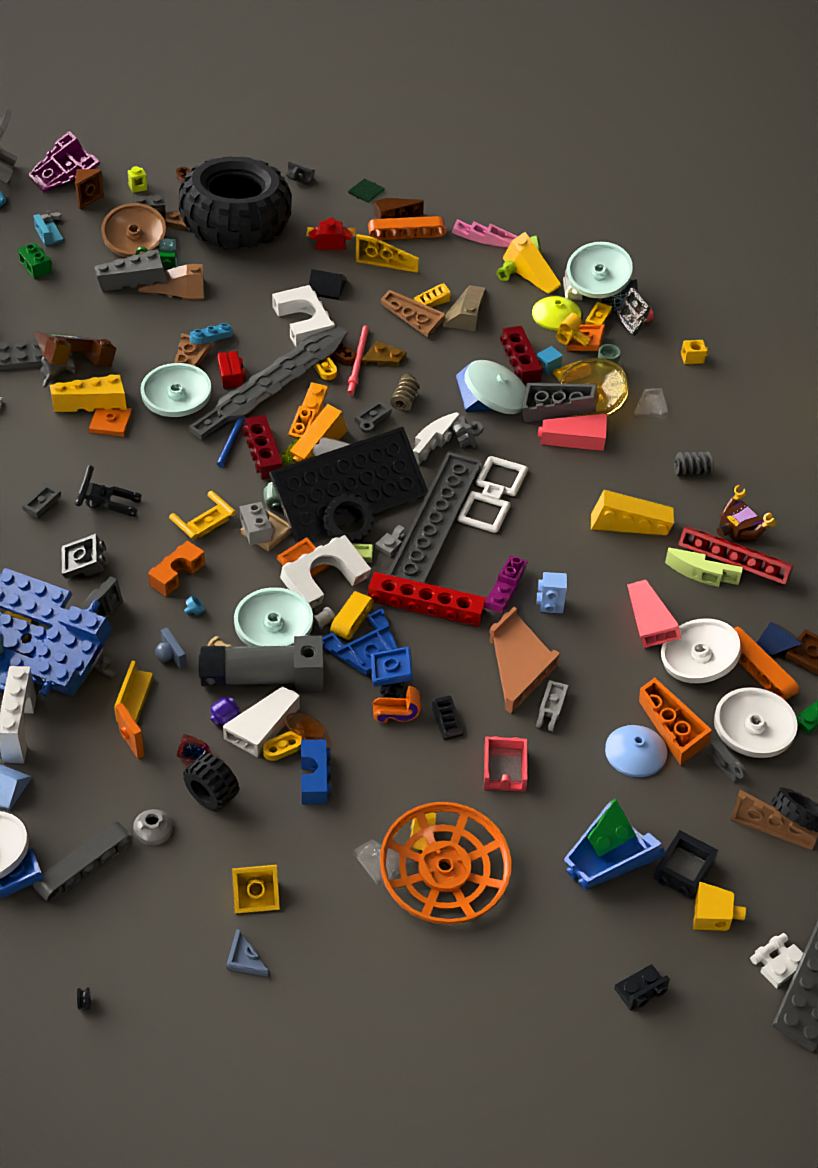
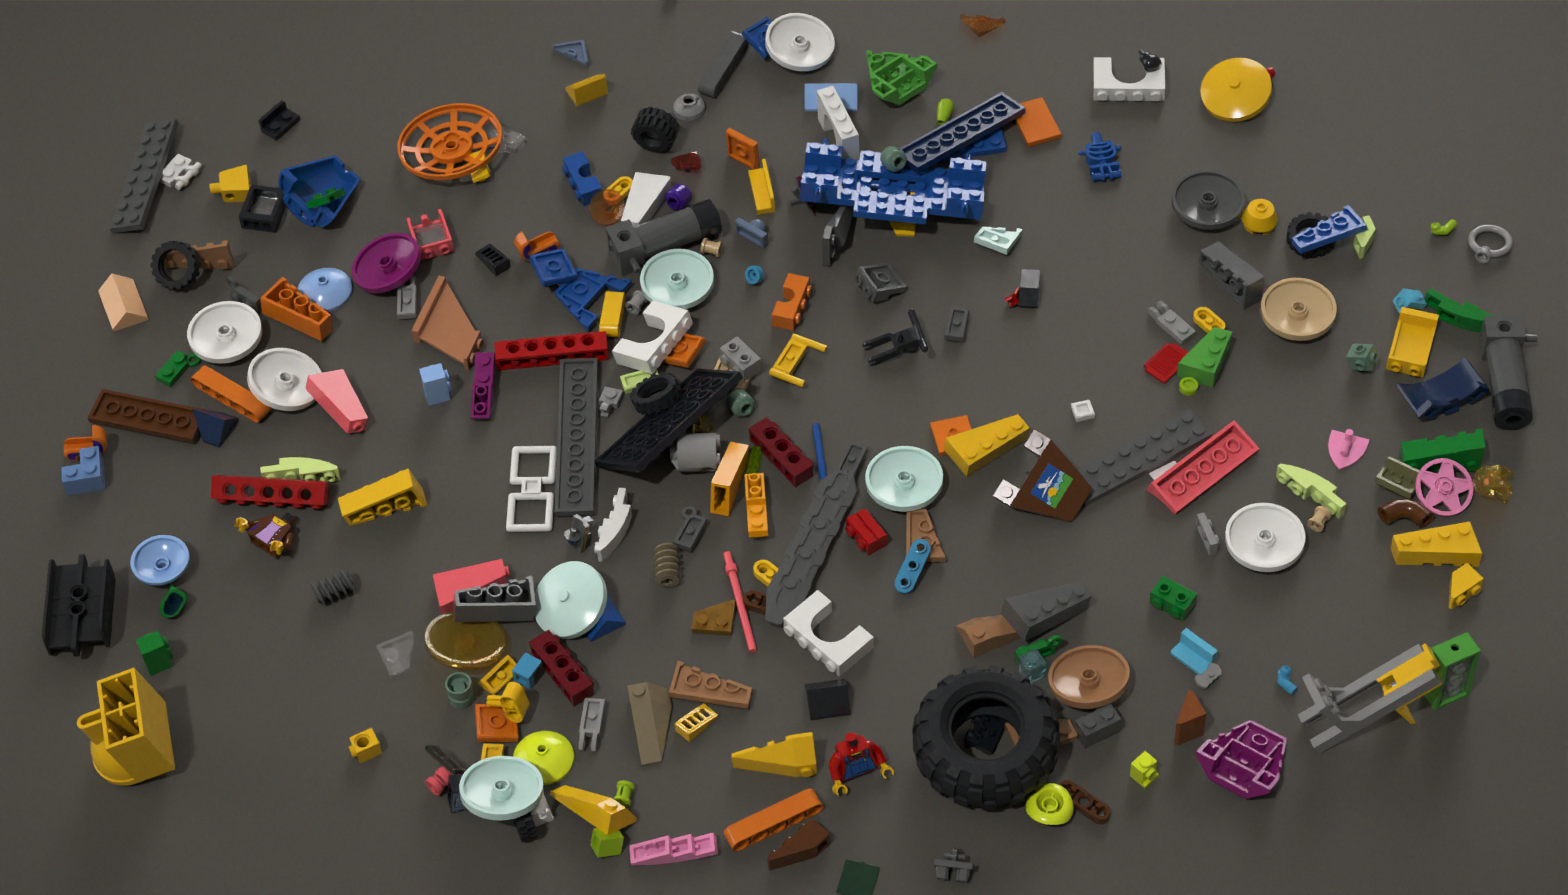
camera: 165 degrees right, 5 degrees up
(512, 316) = (591, 722): none -> light grey hinge
(563, 739) = (386, 263): none -> magenta dish

